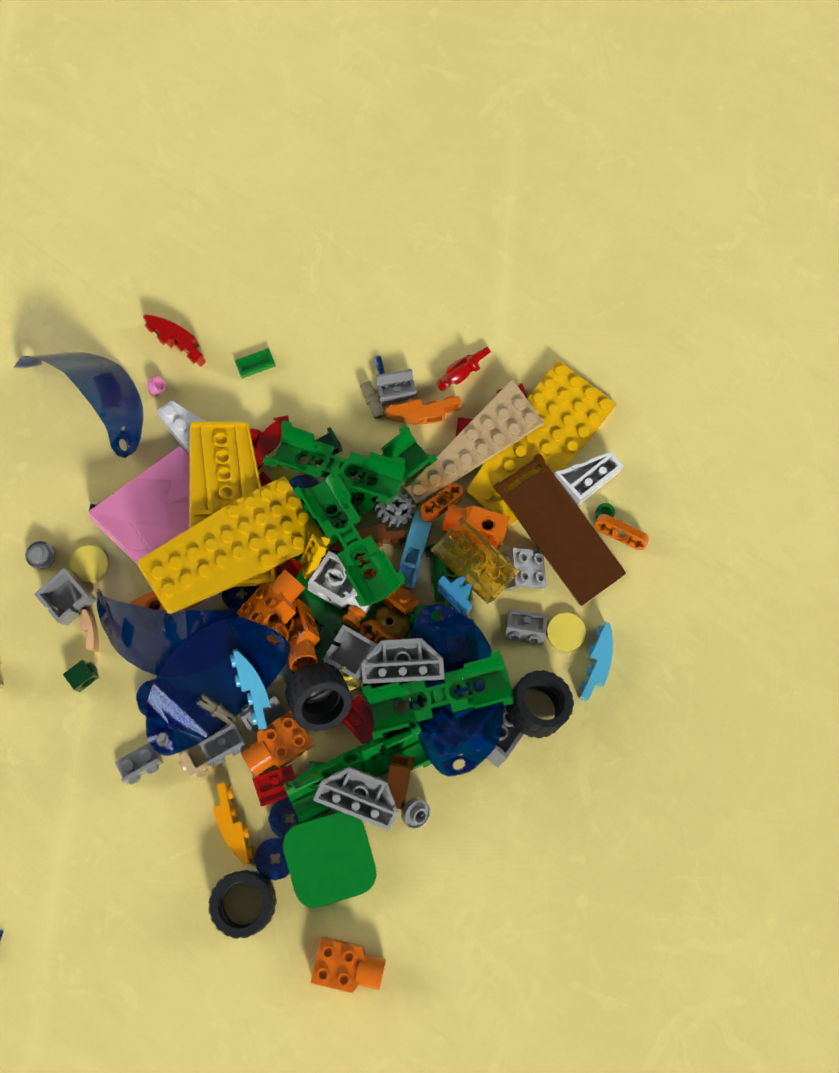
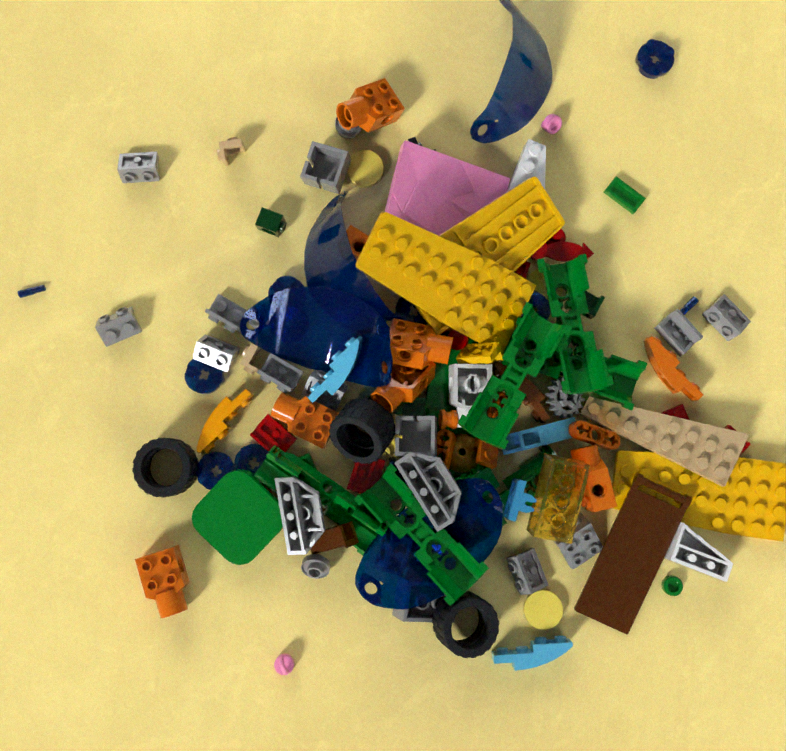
camera: 60 degrees right, 10 degrees up
(39, 526) = (370, 107): none -> orange brick
(83, 876) = (117, 326): none -> light grey bracket
(89, 625) = (315, 201): light nougat slope -> none
(153, 266) = (662, 52): none -> clear blue plate
(166, 795) = (215, 352): none -> bracket
(173, 334) = (607, 109): red slope -> none
(188, 827) = (199, 385): none -> clear blue plate
(216, 709) = (305, 350): dark tan pin -> none
(281, 629) = (397, 367): orange tile -> none
(372, 400) = (652, 318): dark tan pin -> none
(407, 342) = (726, 318): none -> light grey bracket
(461, 369) = (730, 381): red animal -> none
(488, 895) = (284, 664): none -> bright pink tile
(618, 525) = (659, 625): orange beam -> none

